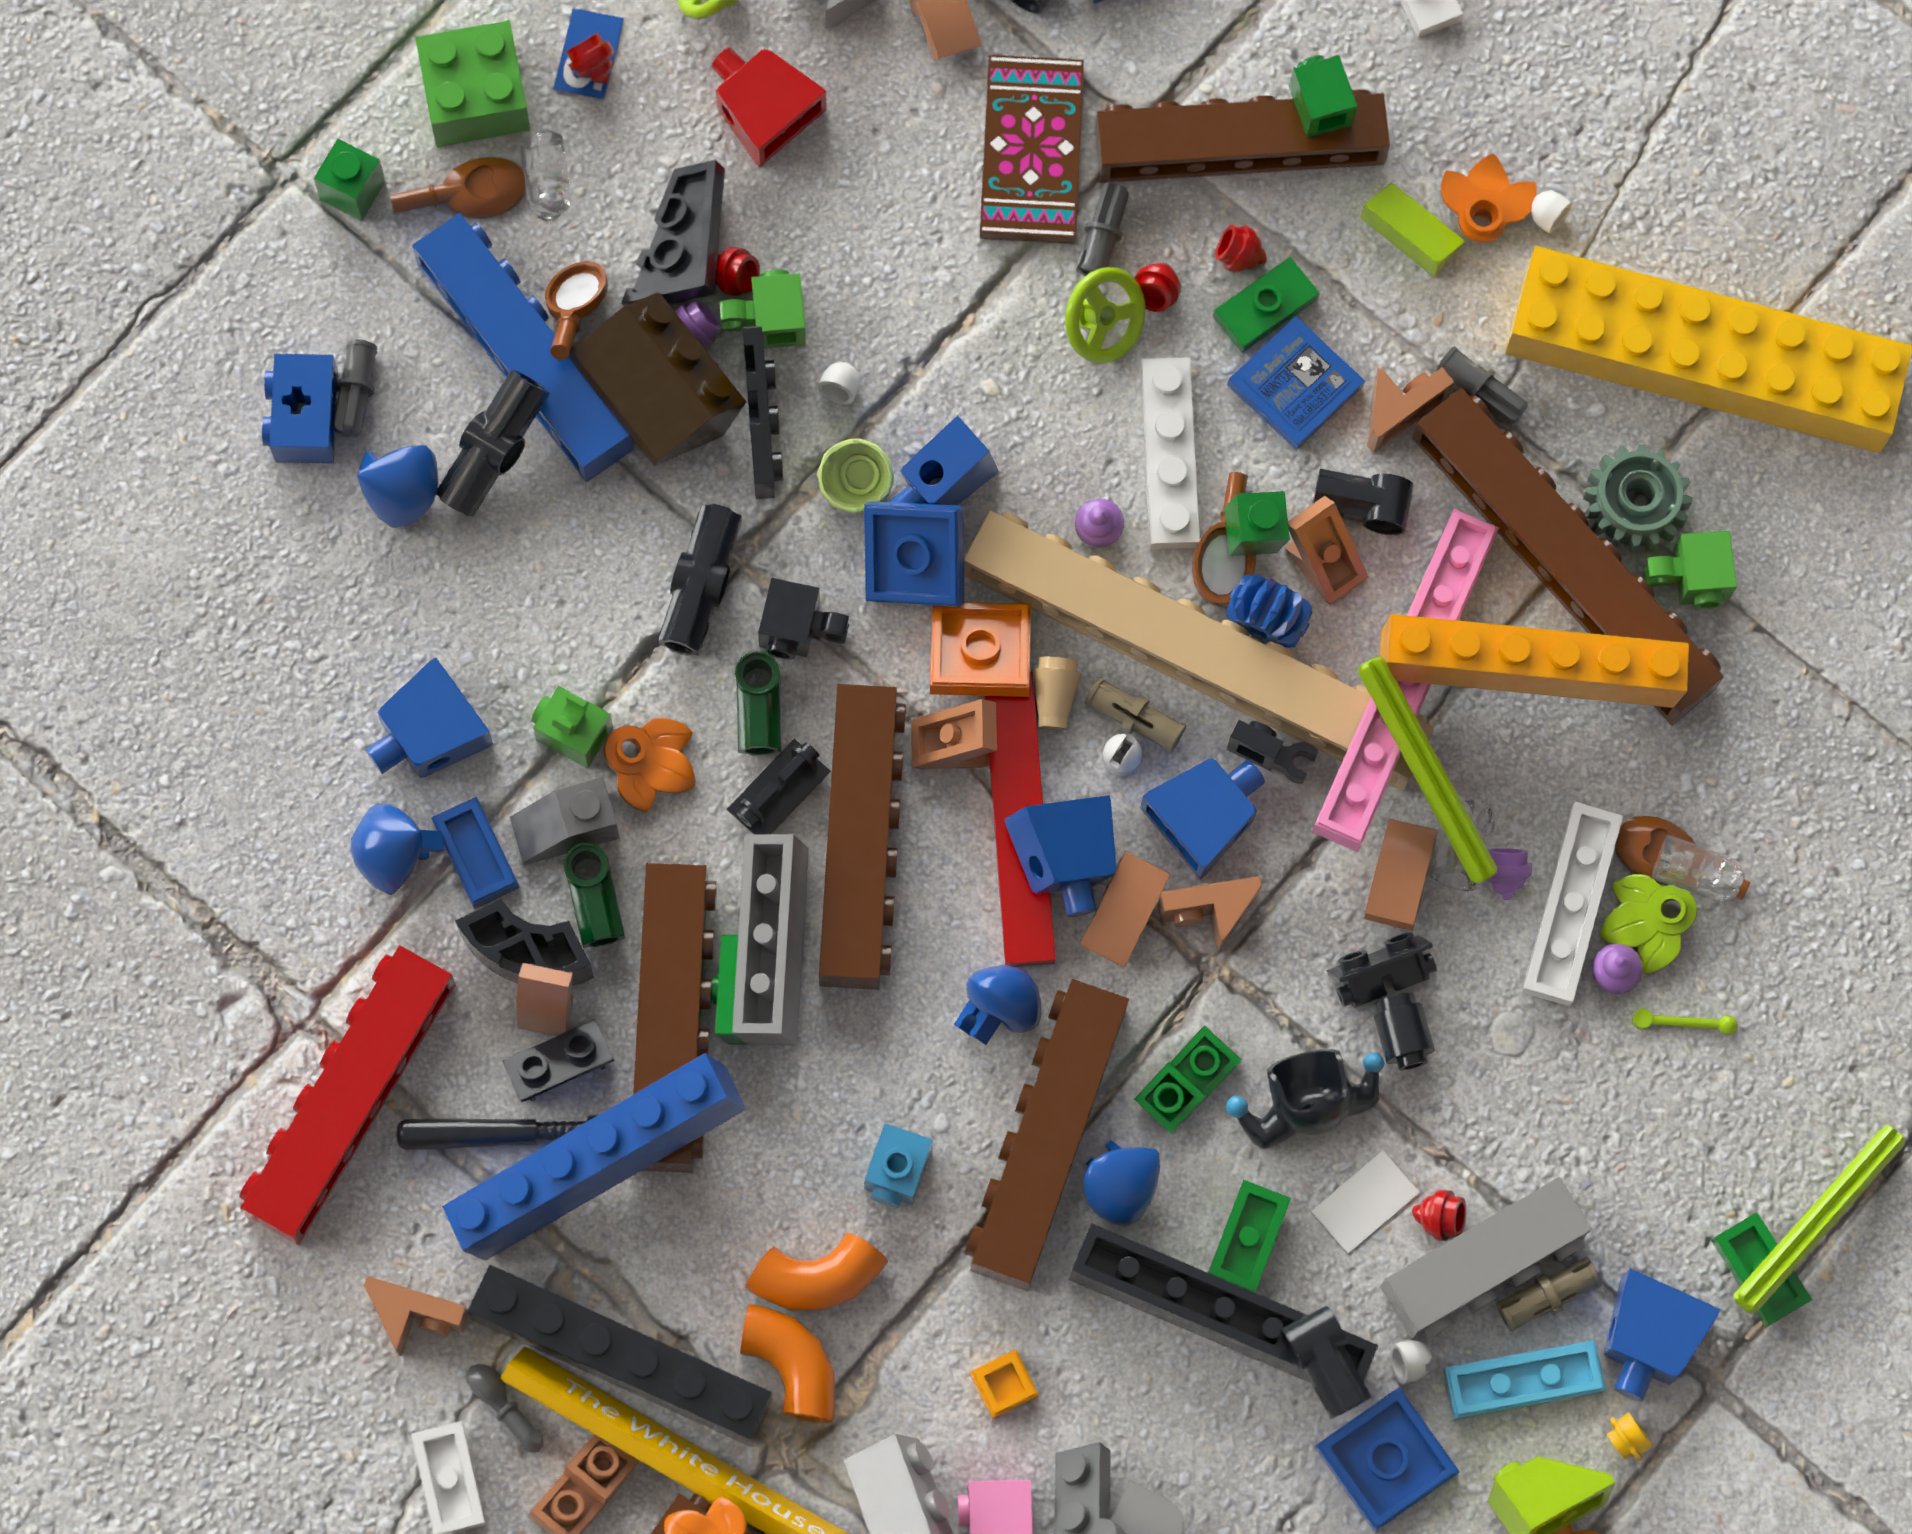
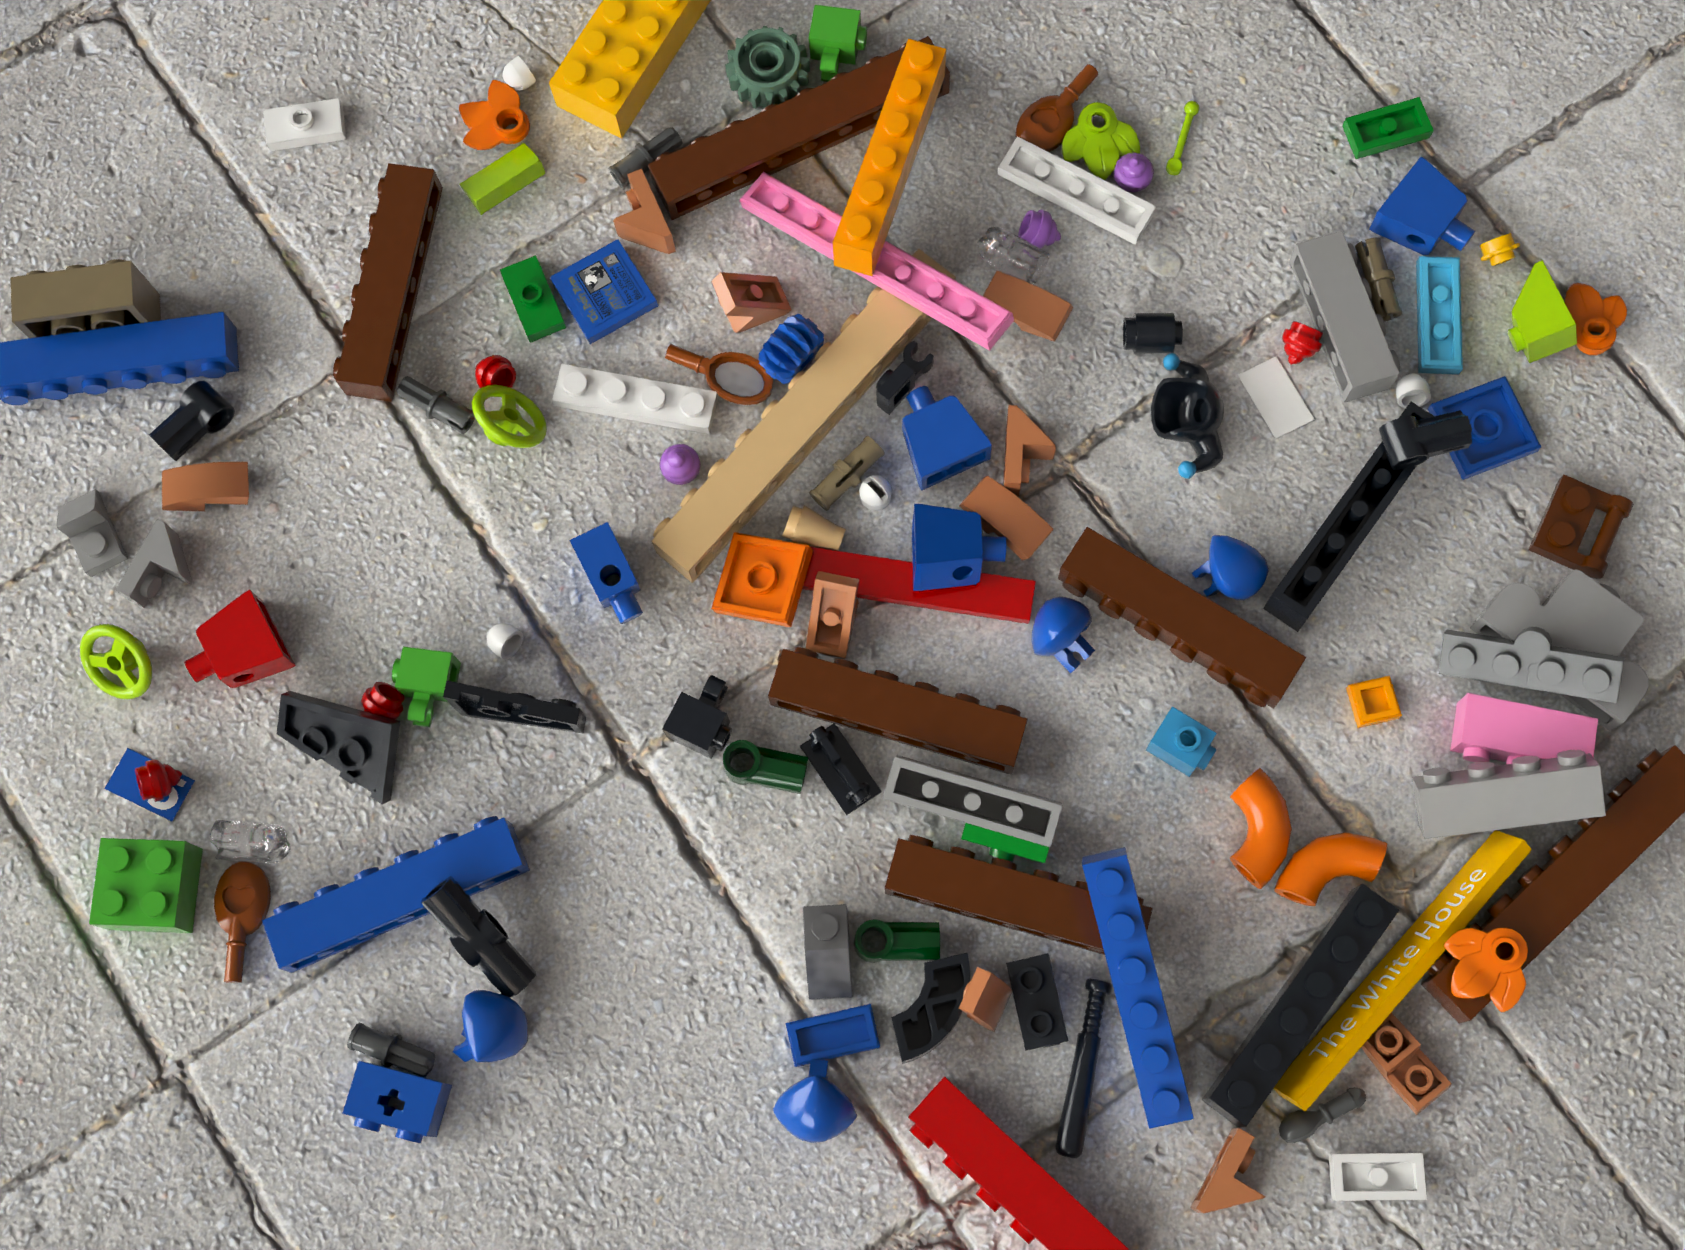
camera: 65 degrees left, 0 degrees up
(349, 179) = (200, 1013): green brick -> none
(428, 725) = (713, 1050): blue torso -> none
(571, 296) = (365, 841): dark orange piece -> none
(571, 726) = (744, 927): bright green brick -> none
(657, 379) = (461, 785): dark brown slope -> none
(657, 764) = (794, 863): orange plate -> none
(699, 321) = (420, 747): medium lavender plate -> none
(700, 579) = (644, 791): black piece -> none
(854, 475) = (590, 643): yellowish green hair -> none
(914, 553) = (671, 609): blue tile -> none
(1031, 149) = (348, 445): reddish brown tile -> none
(1188, 1079) = (1153, 504): green slope -> none
(1240, 249) = (481, 306): red plate -> none
(1249, 1235) = (1292, 486): green plate -> none
(1256, 523) = (718, 339): green brick -> none
(1322, 95) = (378, 202): green brick -> none
(1364, 971) = (1092, 321): black hinge -> none
(1377, 501) = (719, 251): black piece -> none
(1427, 769) = (956, 254): lime axle -> none
(1698, 870) = (1072, 92): clear piece -> none
(1819, 1219) = (1361, 77): lime axle -> none

